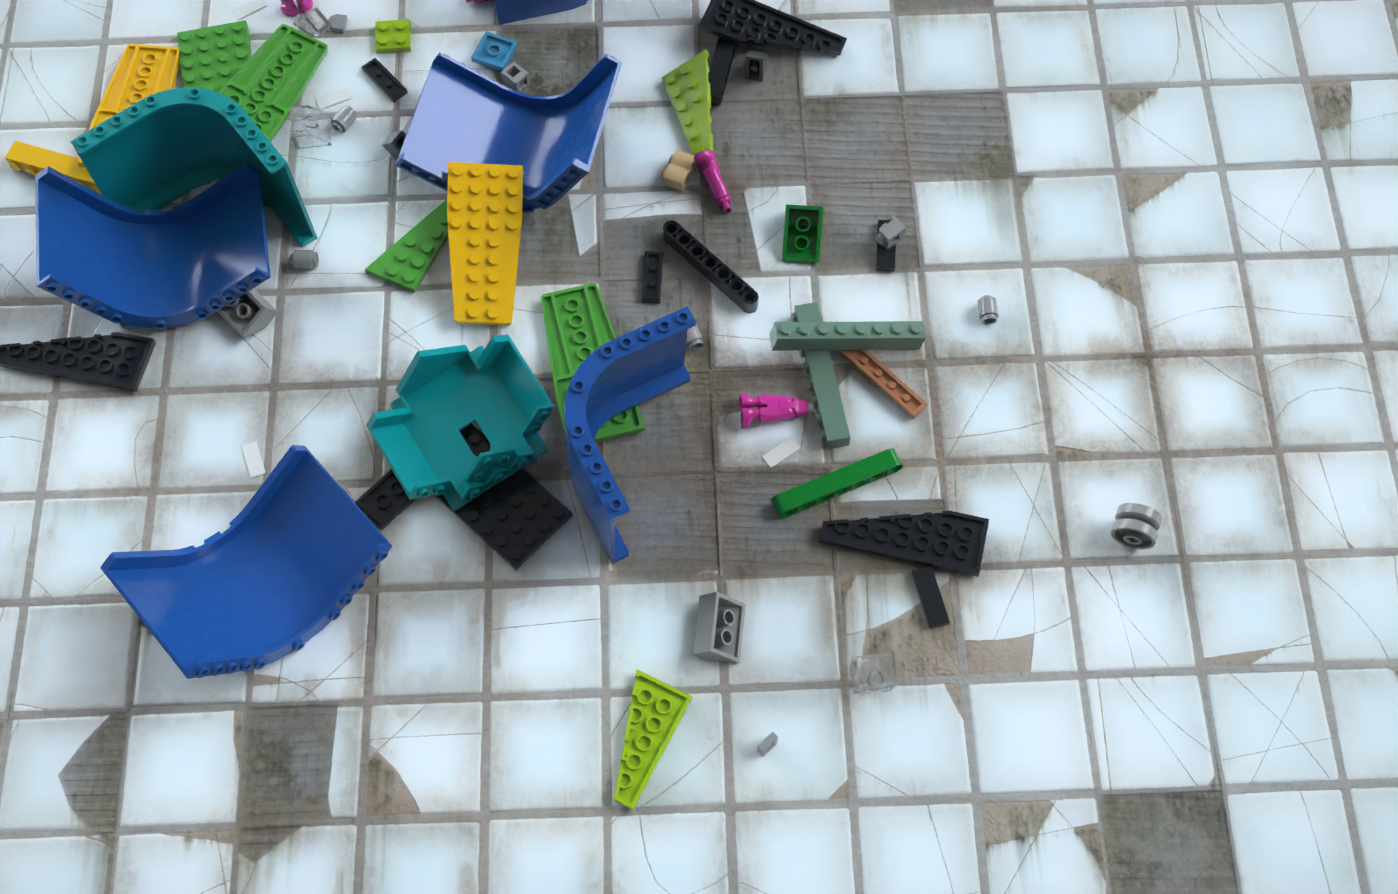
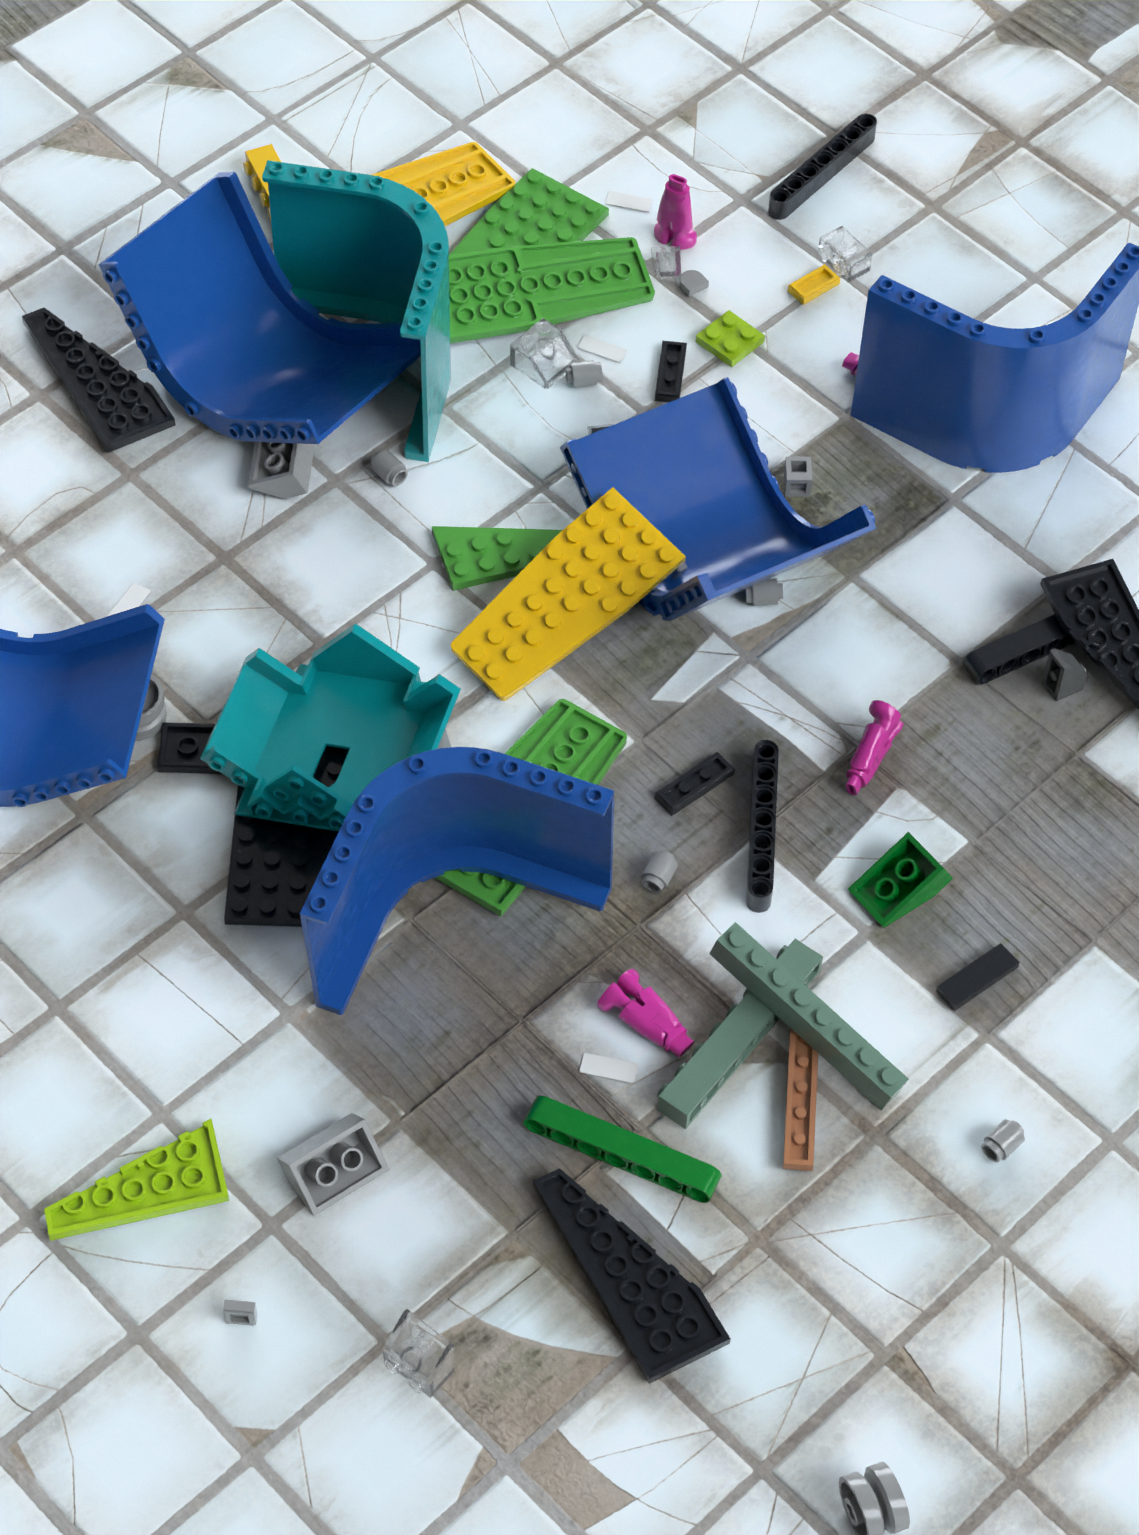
camera: 45 degrees right, 10 degrees down
(494, 51) = (809, 434): dark azure plate -> none
(679, 170) = (848, 707): tan brick -> none
(691, 100) = (948, 650): lime wing -> none
(890, 233) = (990, 965): light grey brick -> none
(930, 597) = (574, 1351): black tile -> none

